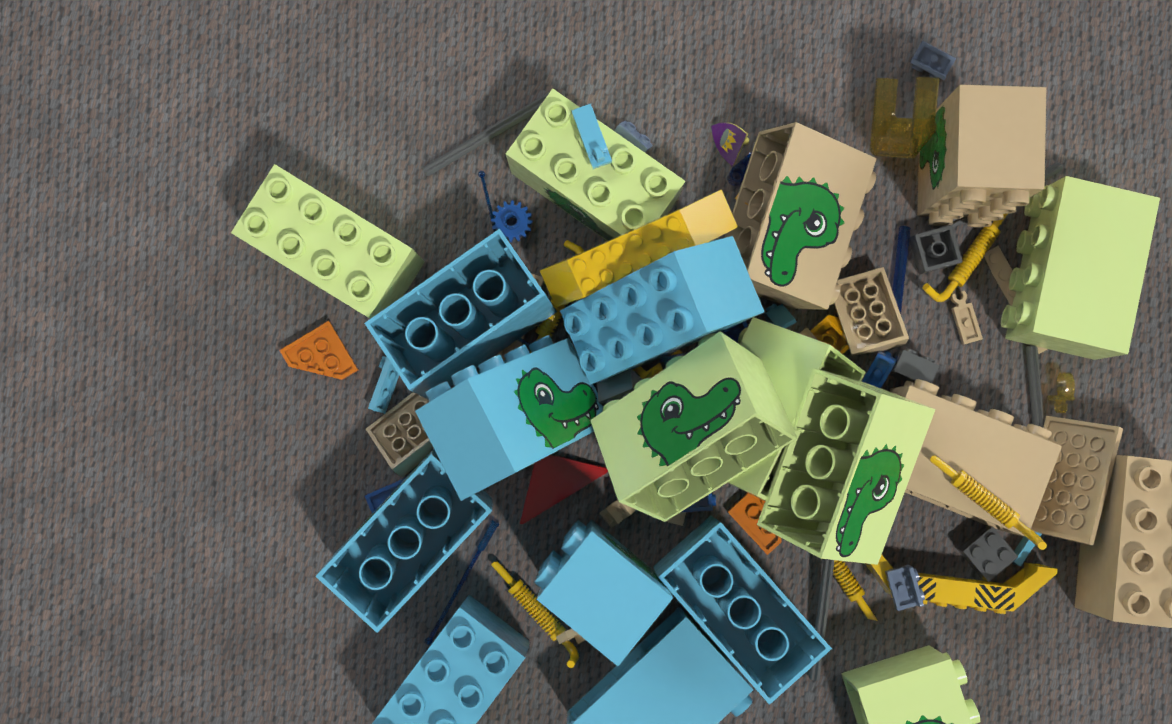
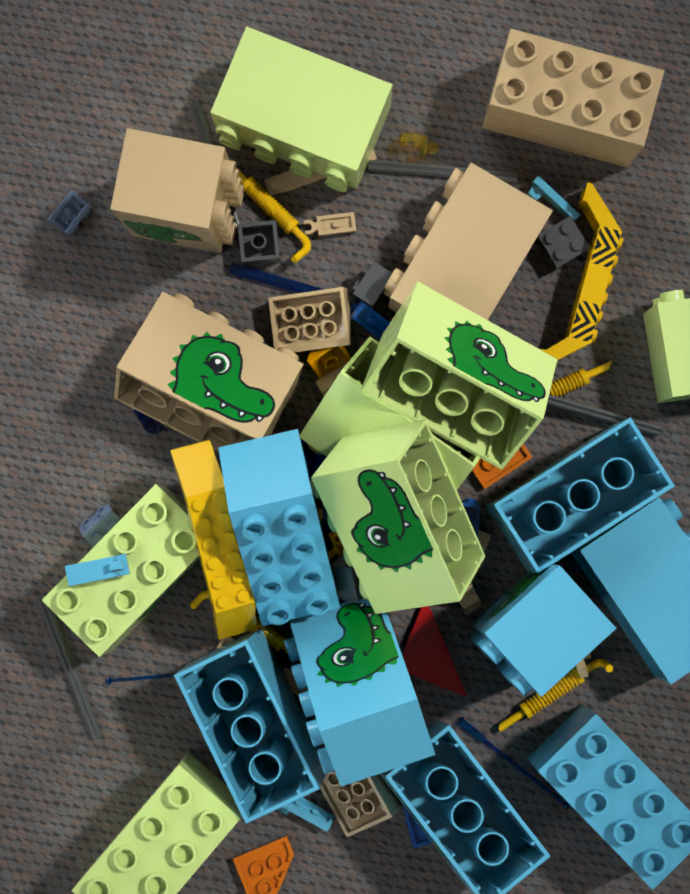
camera: 85 degrees left, 0 degrees up
(516, 212) = (169, 650): blue gear -> none
(729, 140) = (116, 427): dark purple shield -> none
(779, 316) = (301, 408): dark azure slope -> none
(903, 136) = (140, 262): clear yellow windscreen -> none
(905, 587) = (583, 333): sand blue bracket -> none
(987, 501) = (512, 243): yellow piece -> none
(1079, 479) = (504, 150): tan plate -> none

